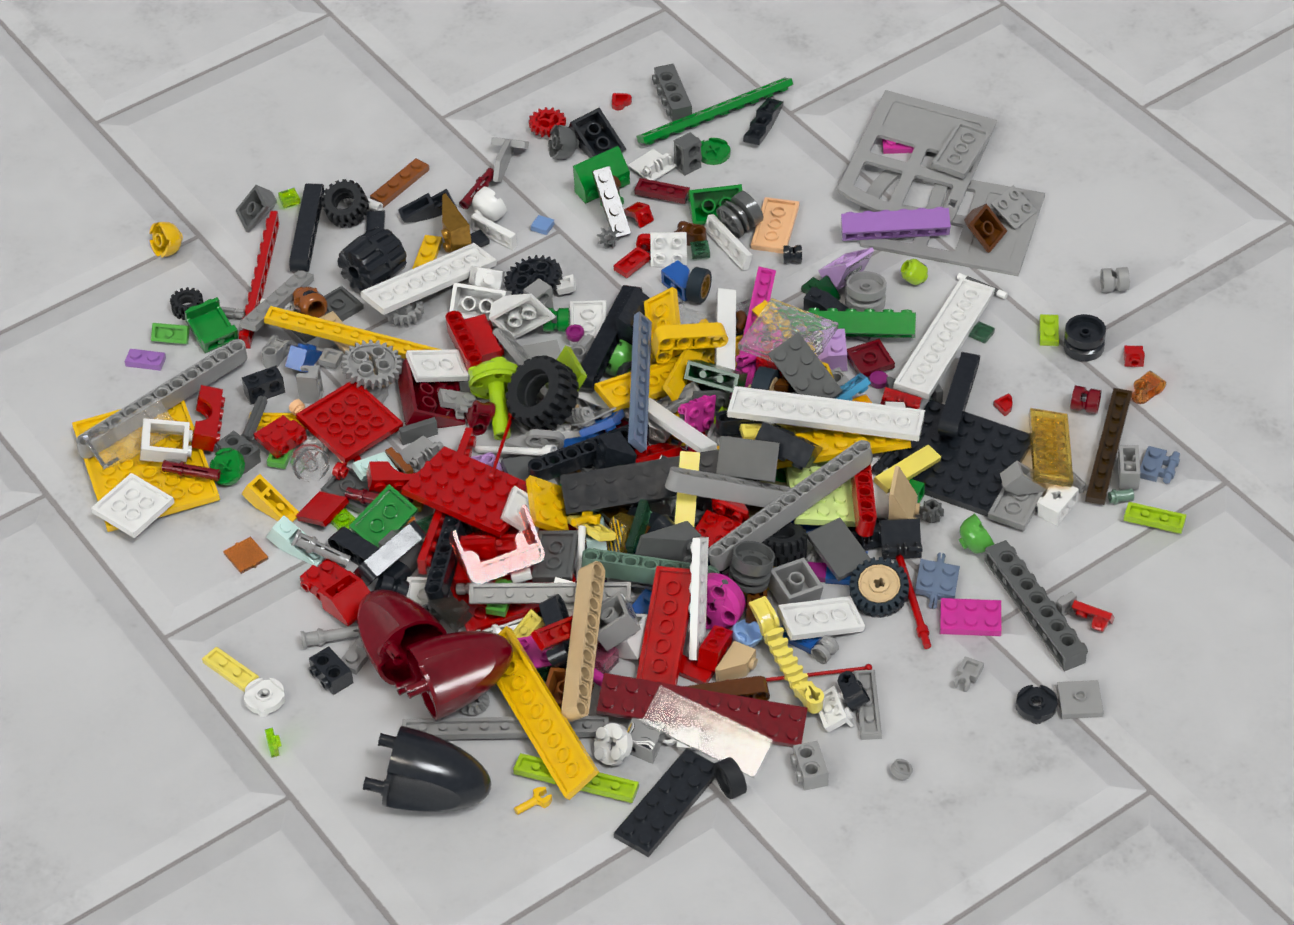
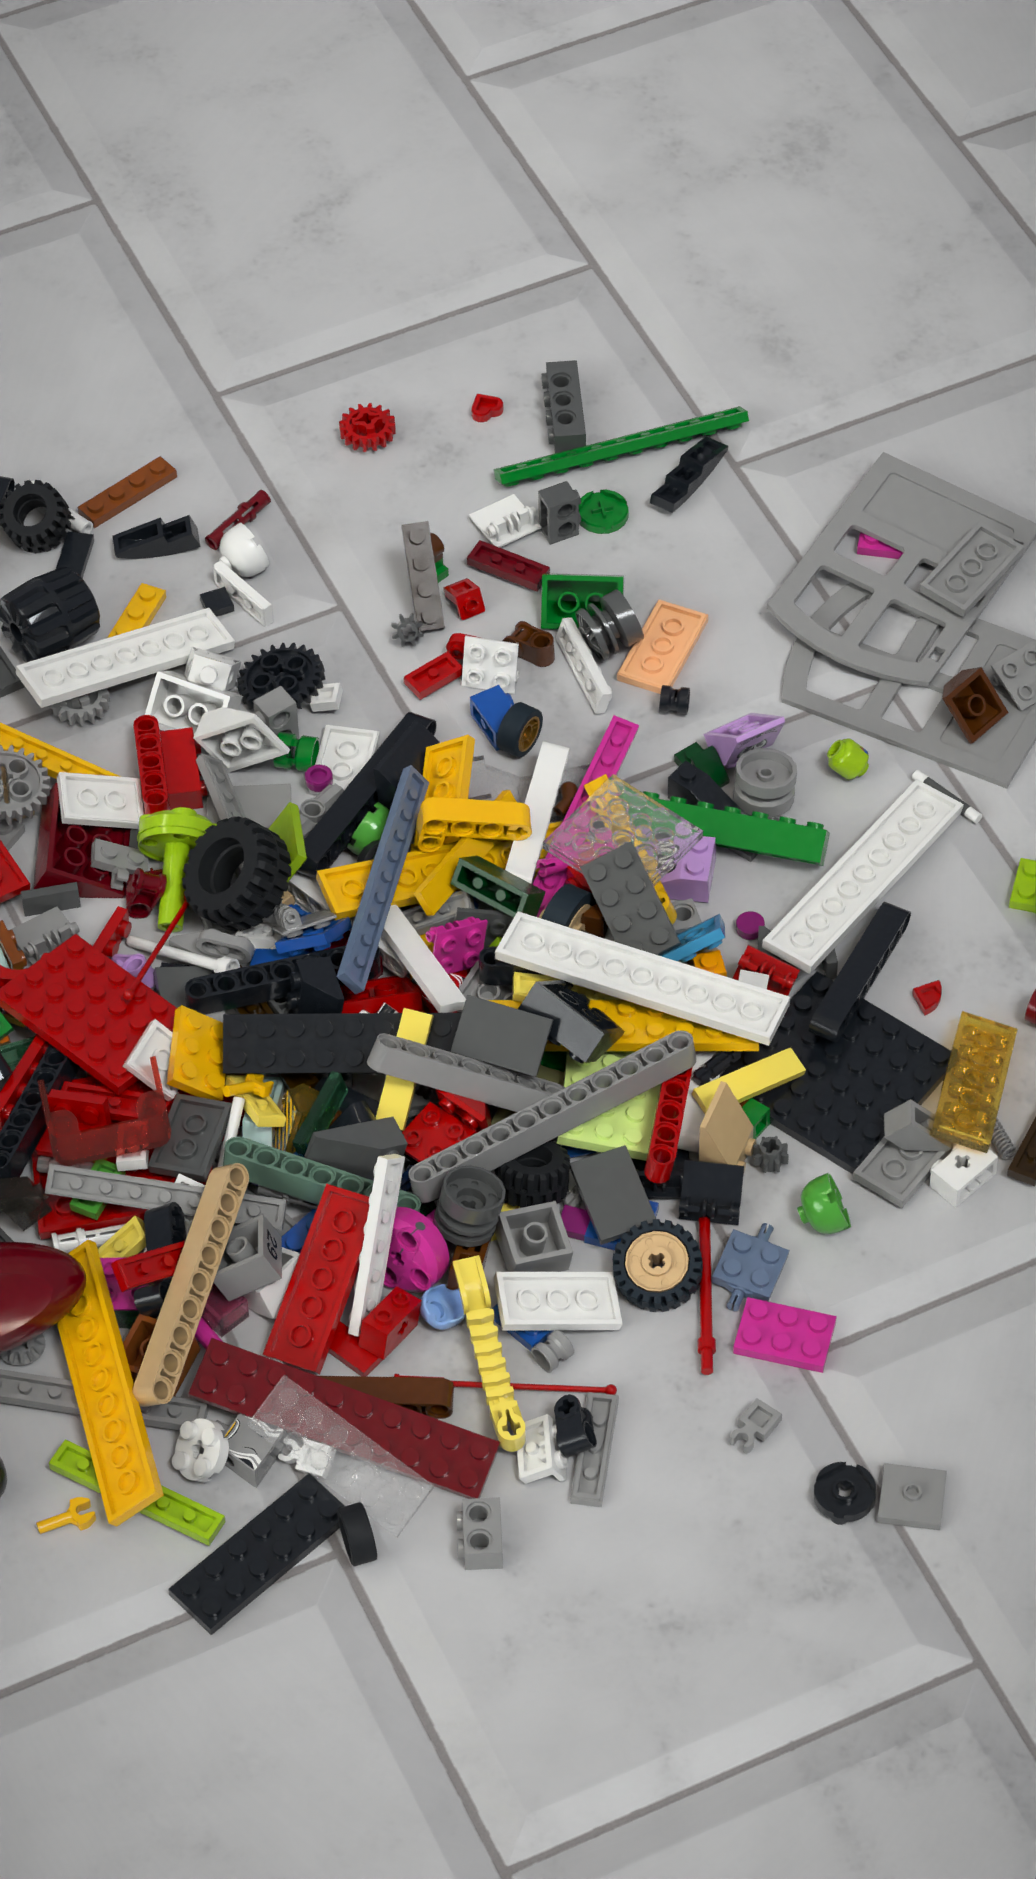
camera: 10 degrees right, 5 degrees up
(455, 227) = (181, 578): pearl gold slope -> none
(505, 154) = (290, 472): light grey piece -> none
(542, 225) = (318, 593): medium blue tile -> none
(563, 142) = (381, 465): dark grey cylinder -> none
(583, 179) = (441, 512): green slope -> none
(595, 133) = (433, 462): black slope -> none
(700, 249) = (539, 670): clear green plate -> none
(736, 662) = (416, 1350): tan slope -> none
(870, 358) = (745, 889): dark red plate -> none
(895, 224) = (839, 676): medium lavender brick -> none
(901, 769) = (615, 1562): light grey tile -> none
(982, 332) = (926, 872): clear green tile -> none
(1036, 605) = (911, 1424): dark grey brick -> none
(1065, 603) = (930, 1340): light grey plate -> none
(1100, 617) = (976, 1372): red hinge -> none

